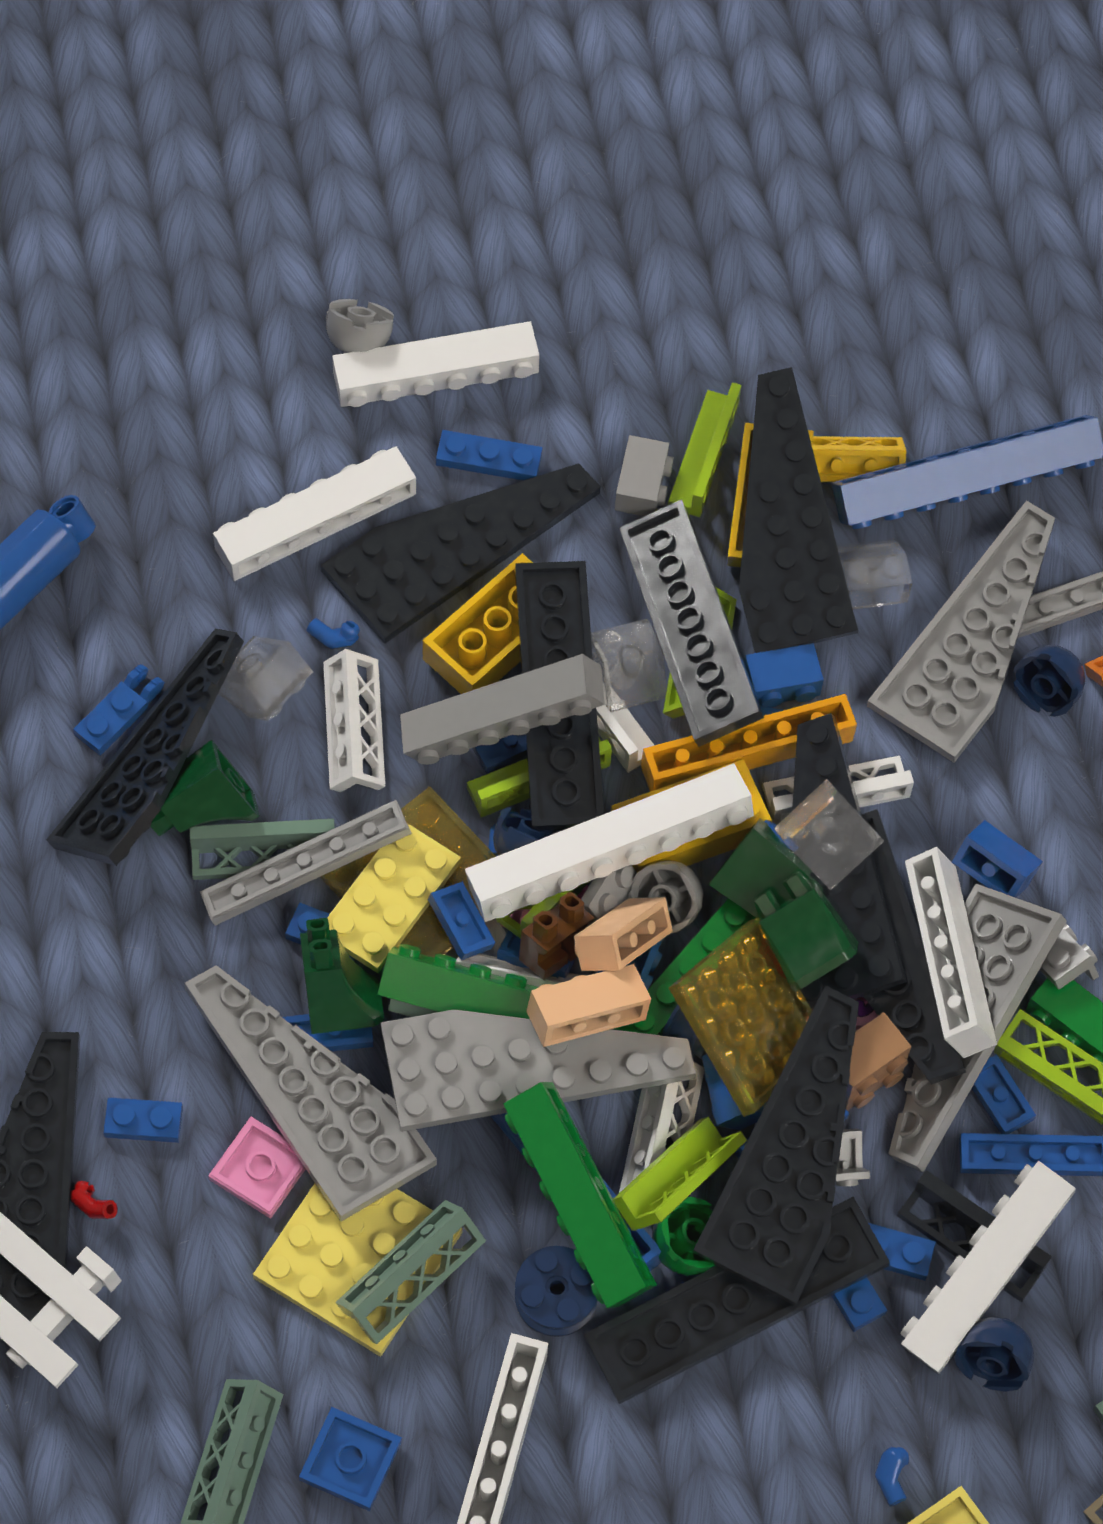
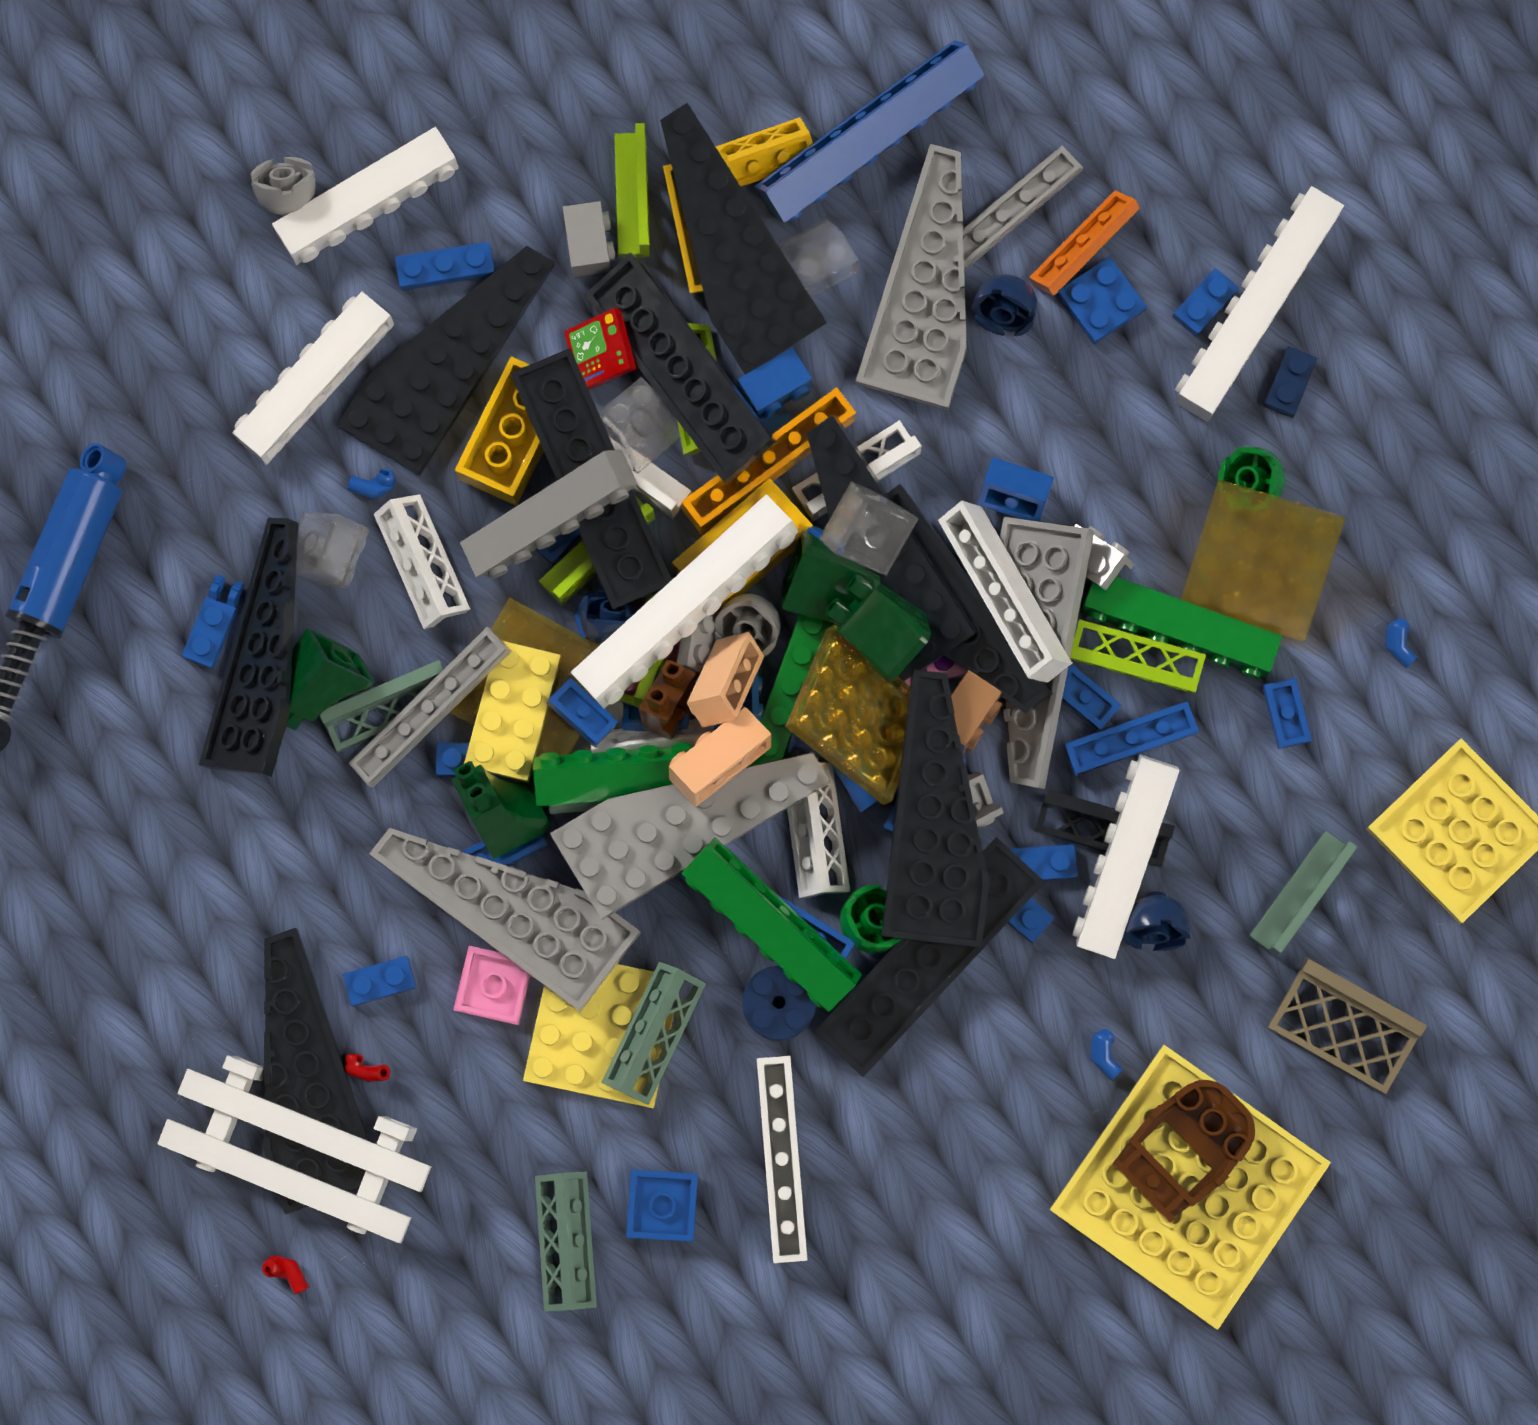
camera: 15 degrees left, 15 degrees up
(618, 581) = (601, 348): none -> red tile
(676, 1174) = (844, 871): lime fence -> none

